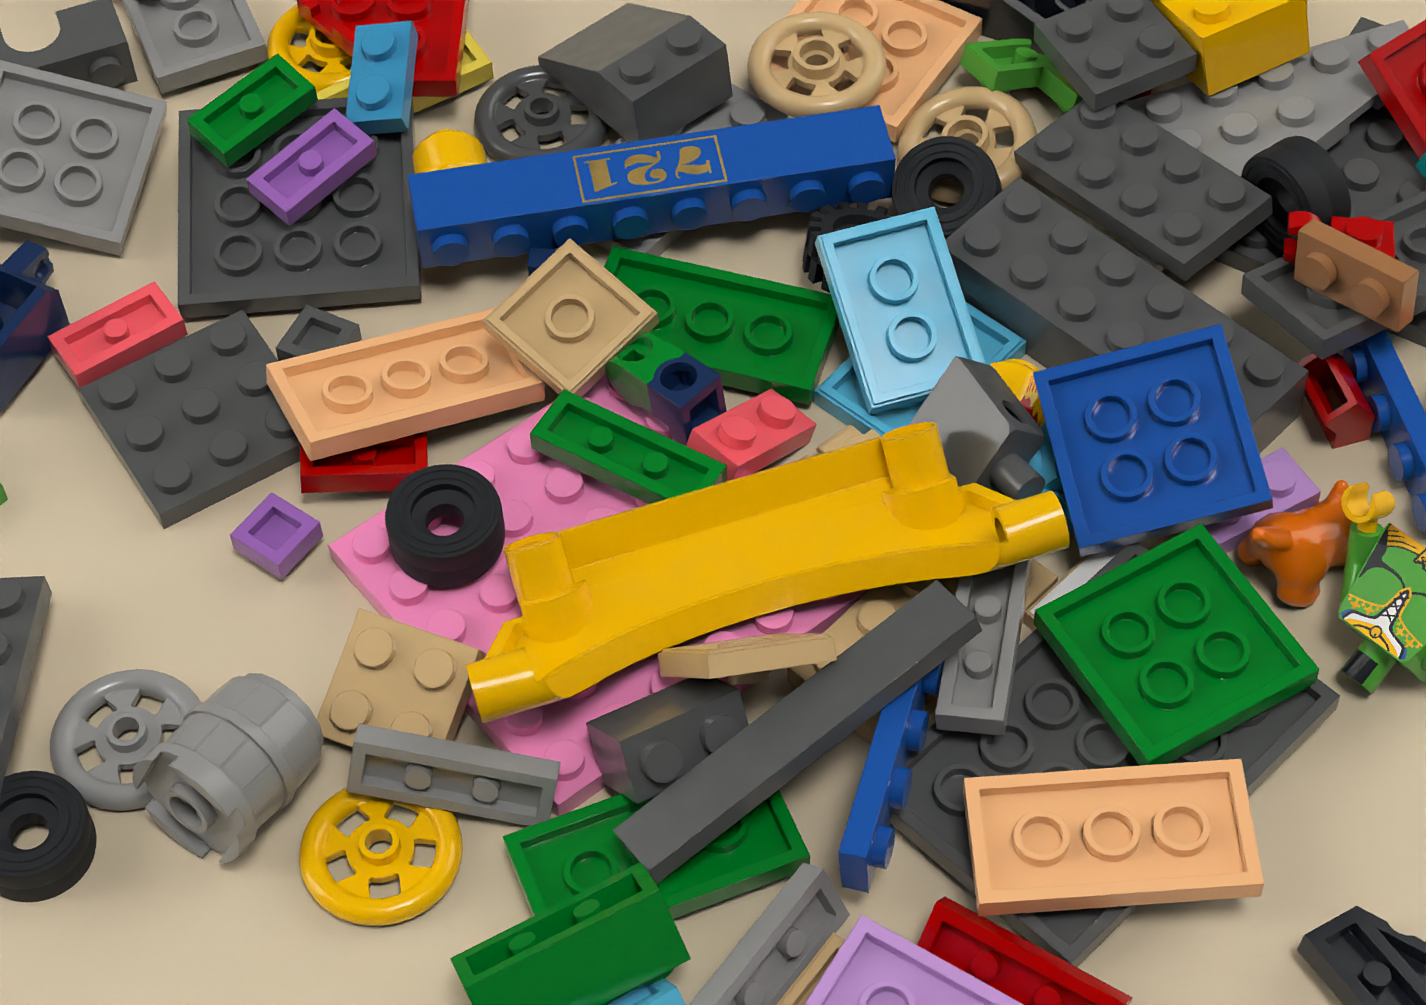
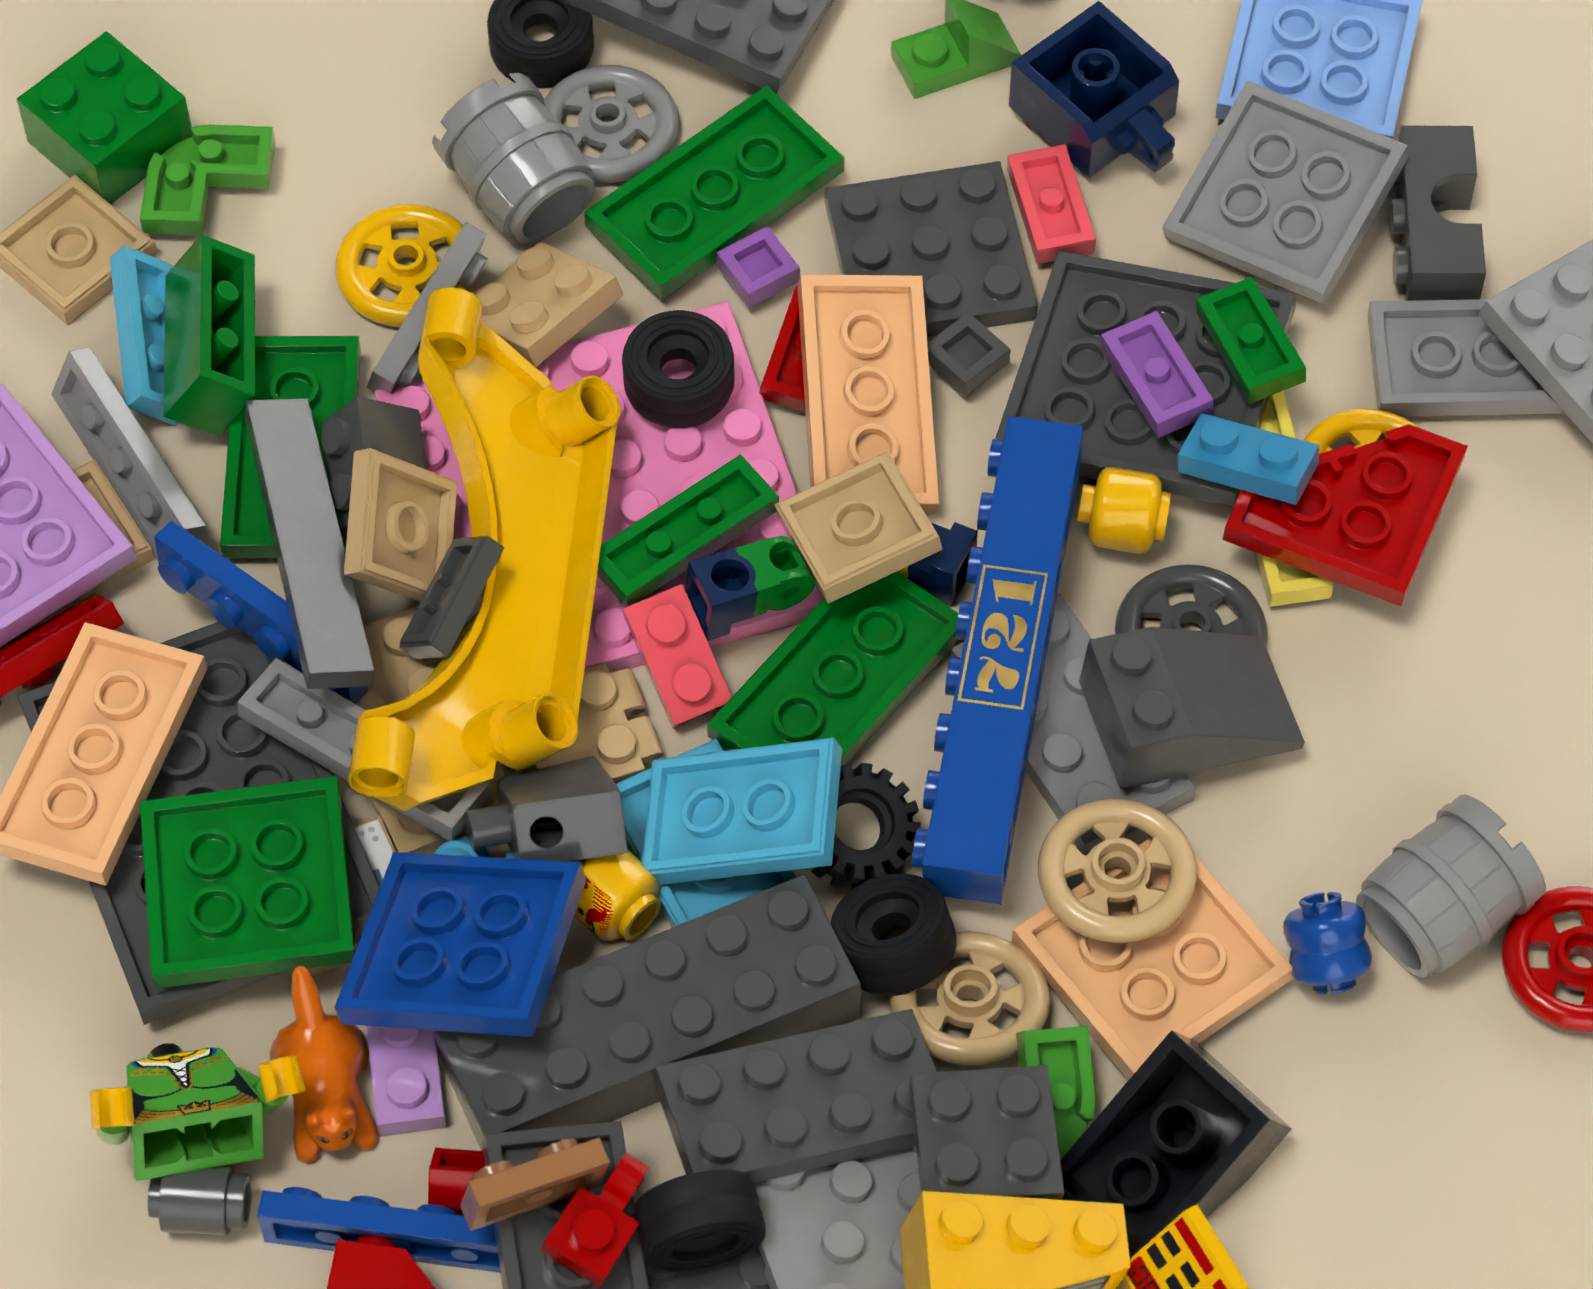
camera: 110 degrees right, 5 degrees up
(193, 601) = (714, 191): none -> green plate
(795, 597) = (451, 597): none -> dark grey plate

